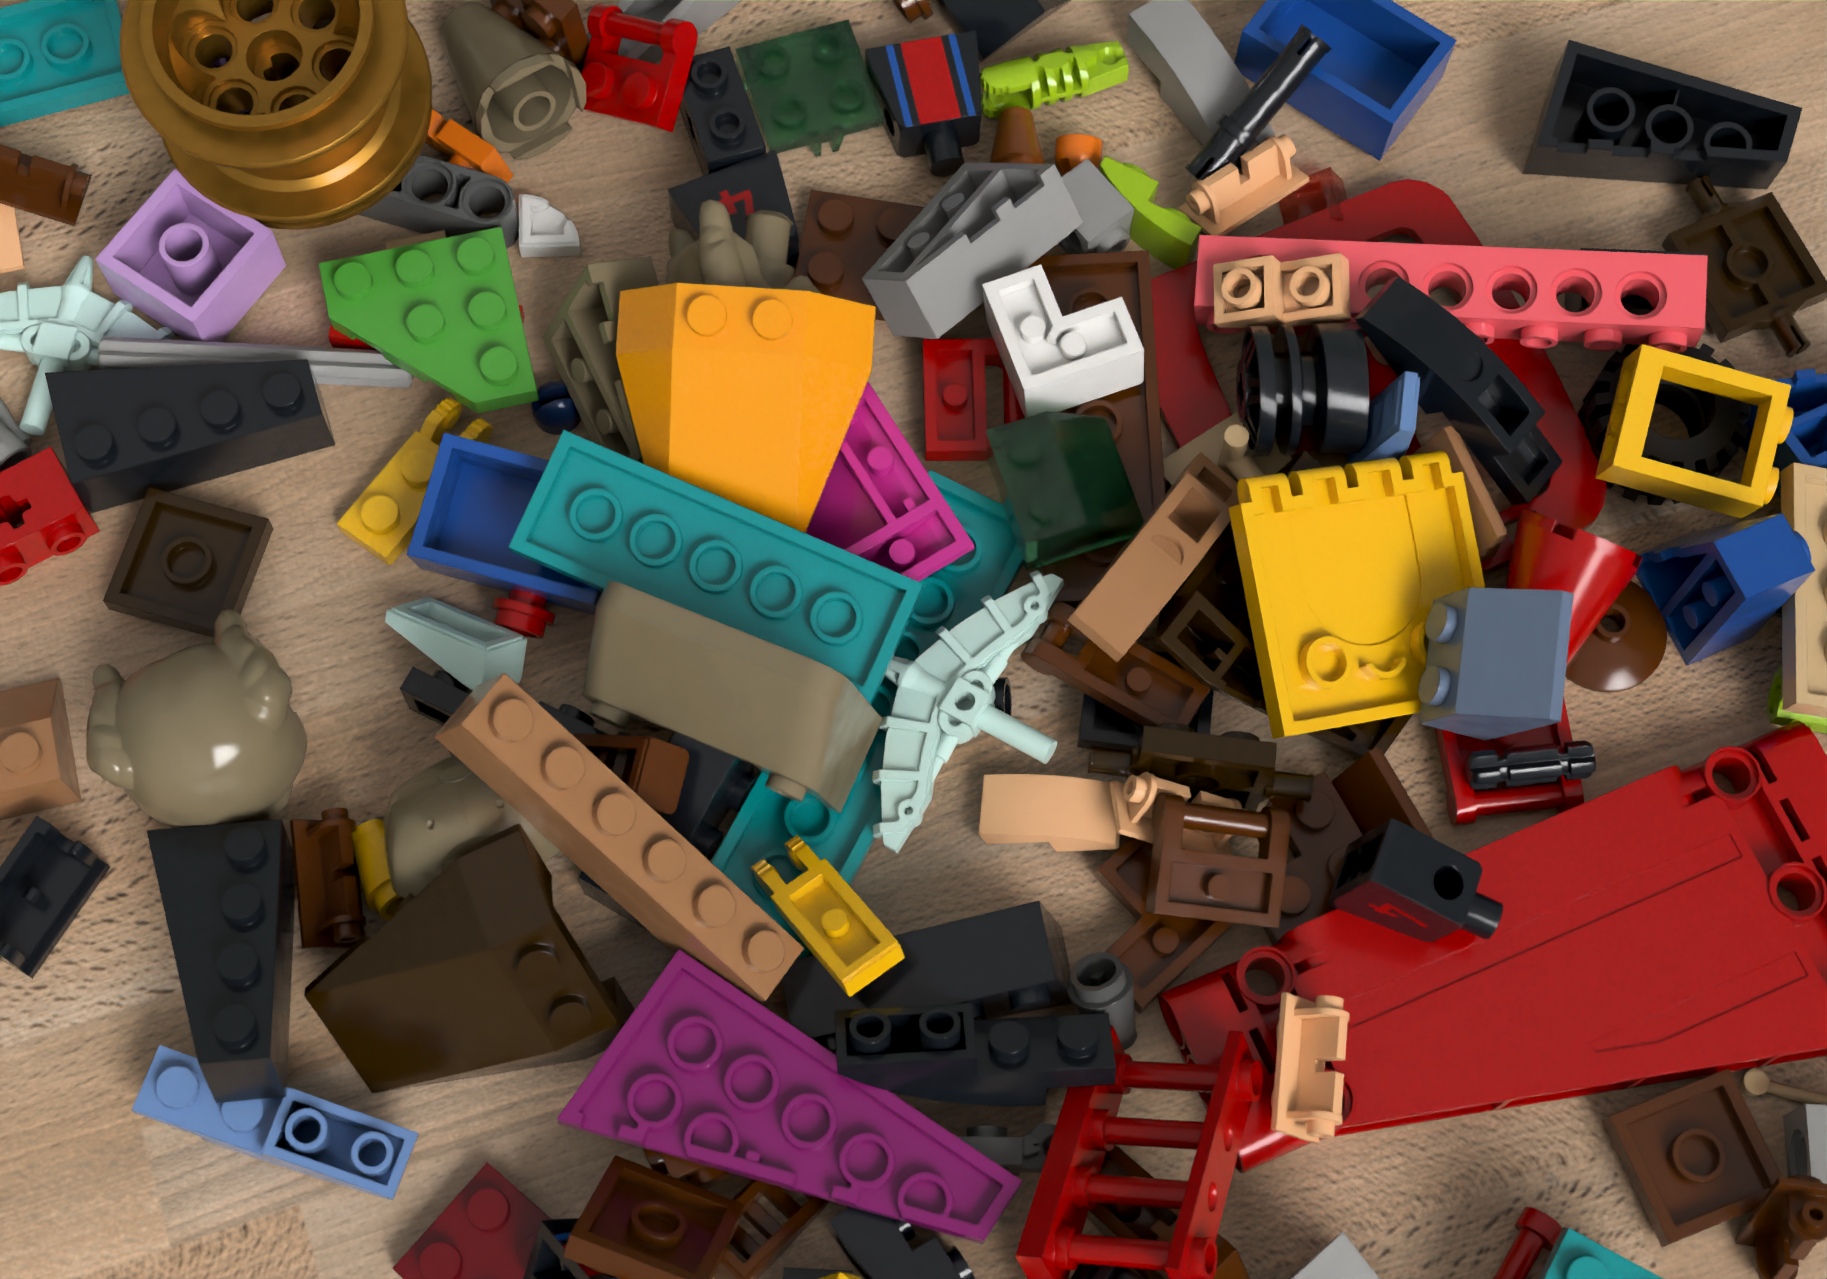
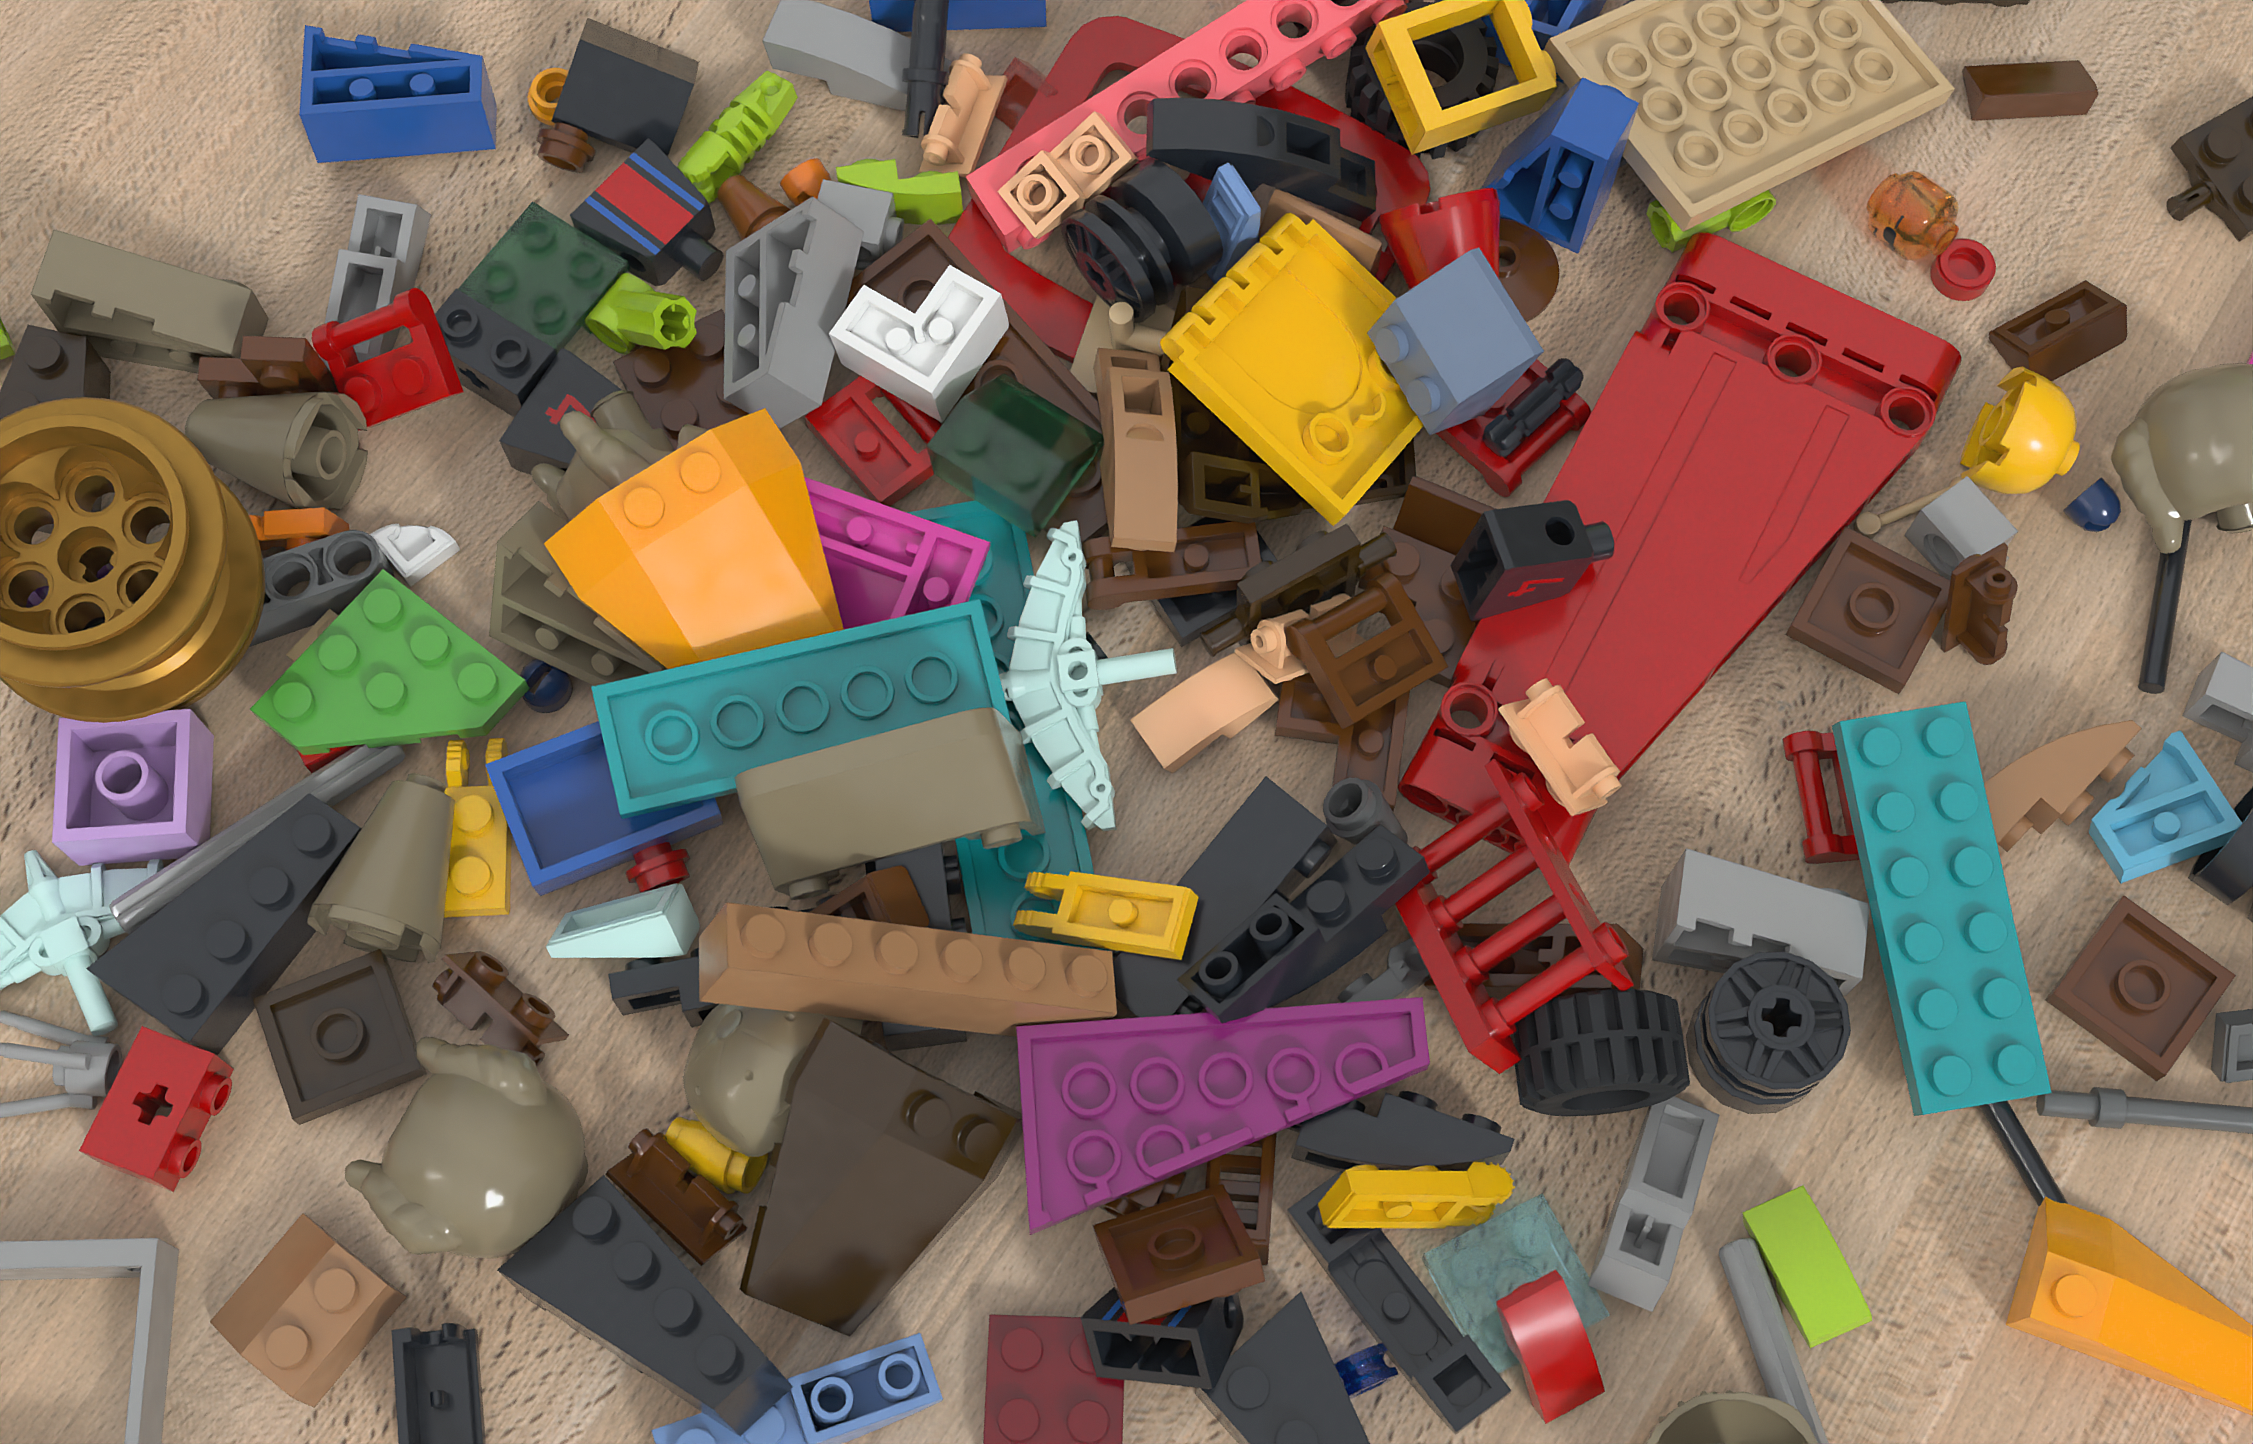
camera: 35 degrees left, 0 degrees up
(319, 605) = (479, 987): none -> reddish brown hinge
(321, 468) = (394, 875): none -> dark tan cone
(858, 169) = (639, 315): none -> lime piece

